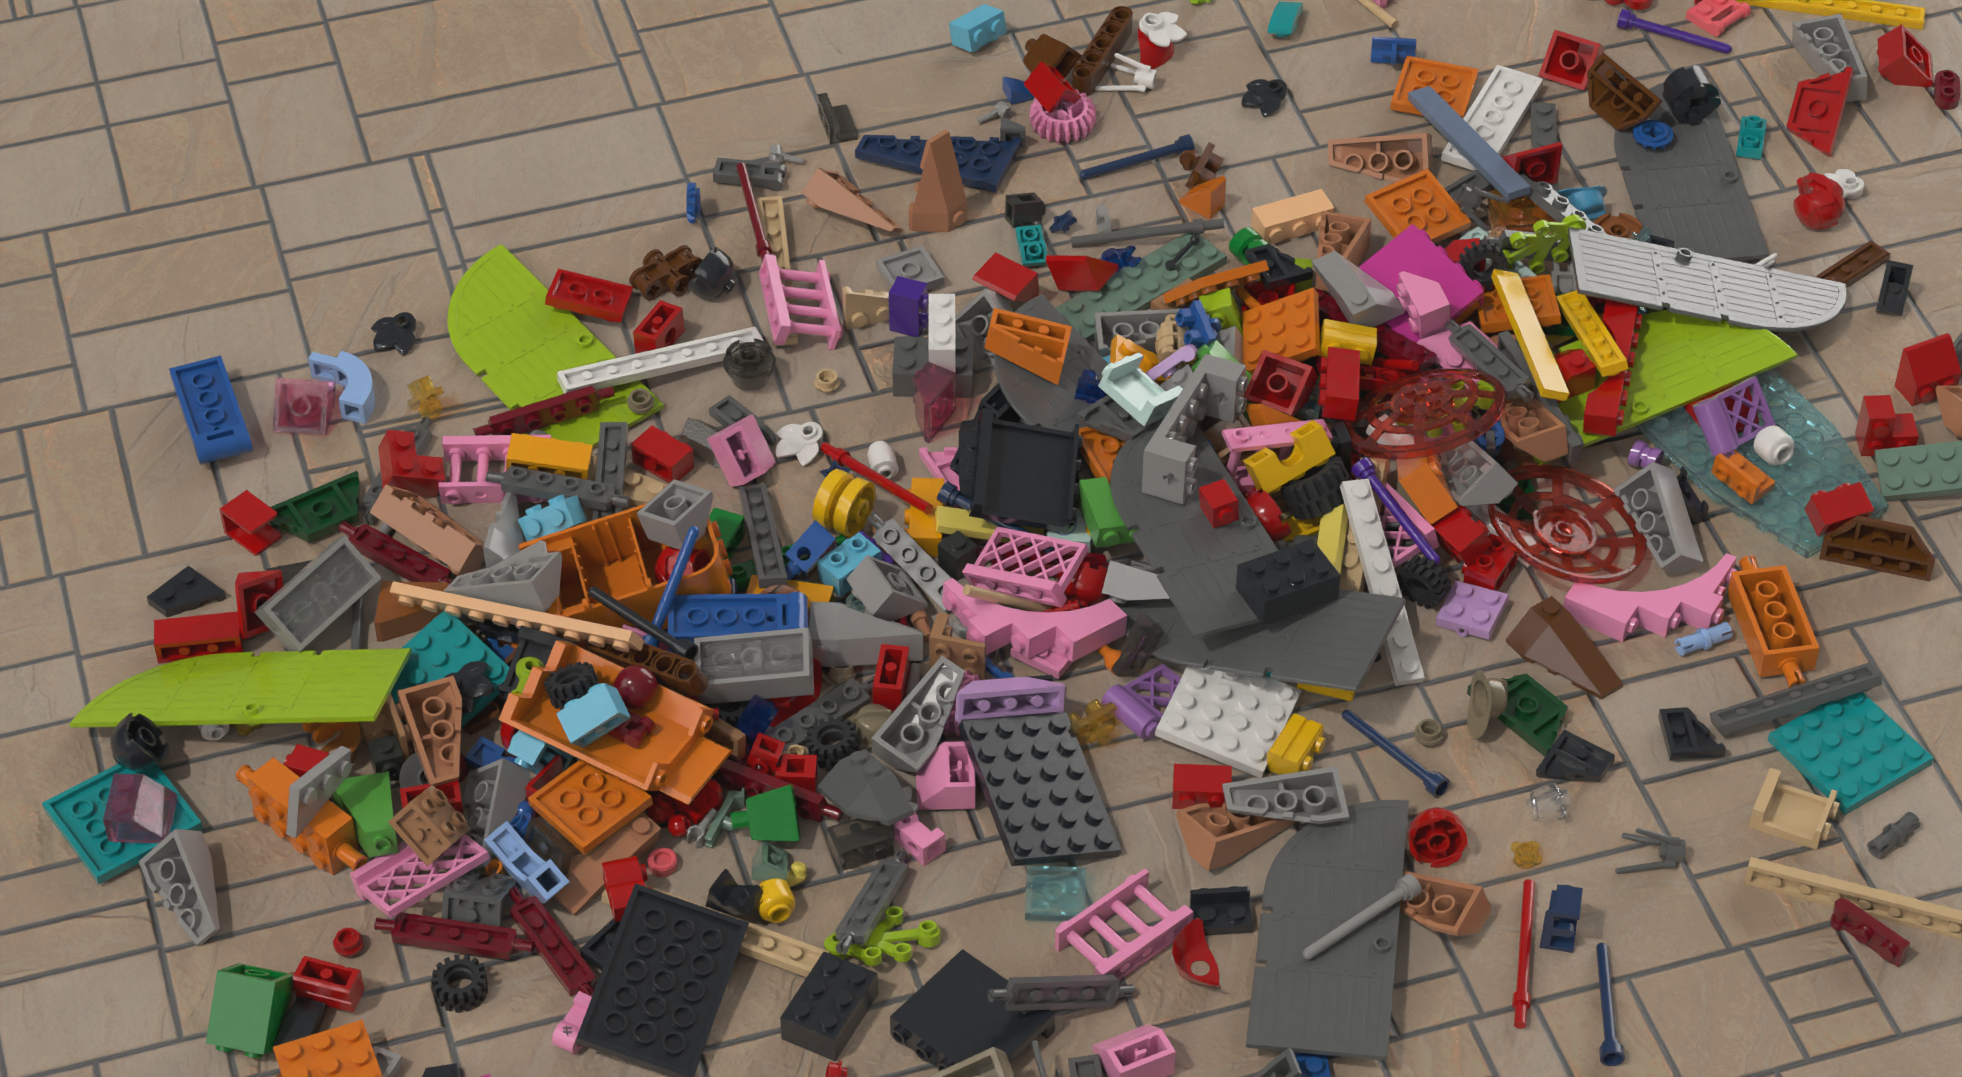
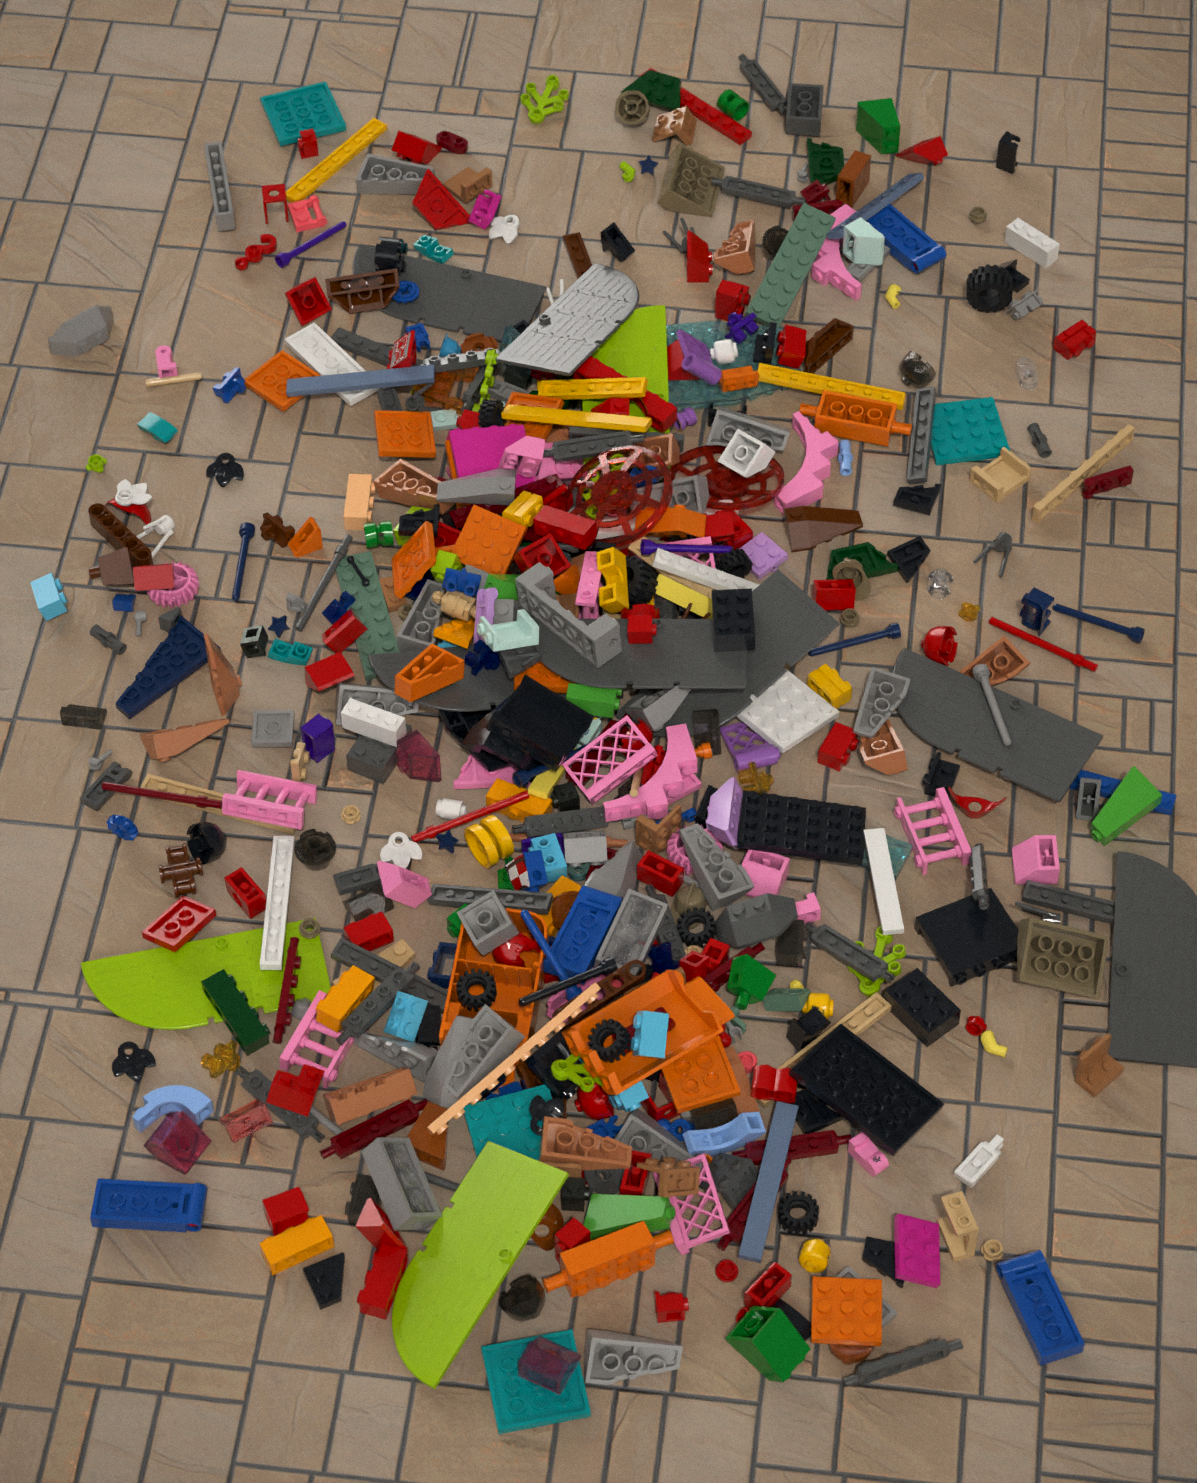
camera: 65 degrees left, 5 degrees up
(137, 743) = (489, 1344): black cylinder -> none
(214, 547) = (296, 1244): none -> light orange brick
(216, 762) = (524, 1299): none -> clear smoke cylinder
(271, 902) = (670, 1307): none -> red brick
(314, 789) = (616, 1223): light grey wing -> none
(320, 509) = (295, 1162): dark green wing -> none
(356, 449) = (246, 1120): none -> clear red panel
(401, 1018) = (814, 1256): none -> yellow head
(482, 932) = (768, 1182): none -> sand blue tile
(493, 383) = (235, 1012): none -> dark green brick
(591, 556) = (476, 978): none -> black tyre
(636, 686) = (625, 1004): dark red hair -> none
(953, 98) = (114, 643): none -> dark grey pin
(1002, 898) = (883, 881): none -> white tile
(1383, 156) = (334, 429): nougat wedge -> none
(1447, 697) = (834, 594): none -> red brick
(1595, 172) = (421, 335): none -> blue plate
(1613, 526) = (746, 454): none -> white slope
(1813, 579) = (818, 383): none -> yellow tile
(1821, 206) = (525, 244): red helmet -> none
(1825, 480) = (765, 345): none -> black bracket
(1835, 445) = (739, 324): none -> dark purple hips
(1851, 155) = (484, 209): none -> dark pink hinge
(1884, 127) = (469, 183): none -> medium nougat bracket
(1908, 655) = (915, 371): none -> clear smoke cylinder

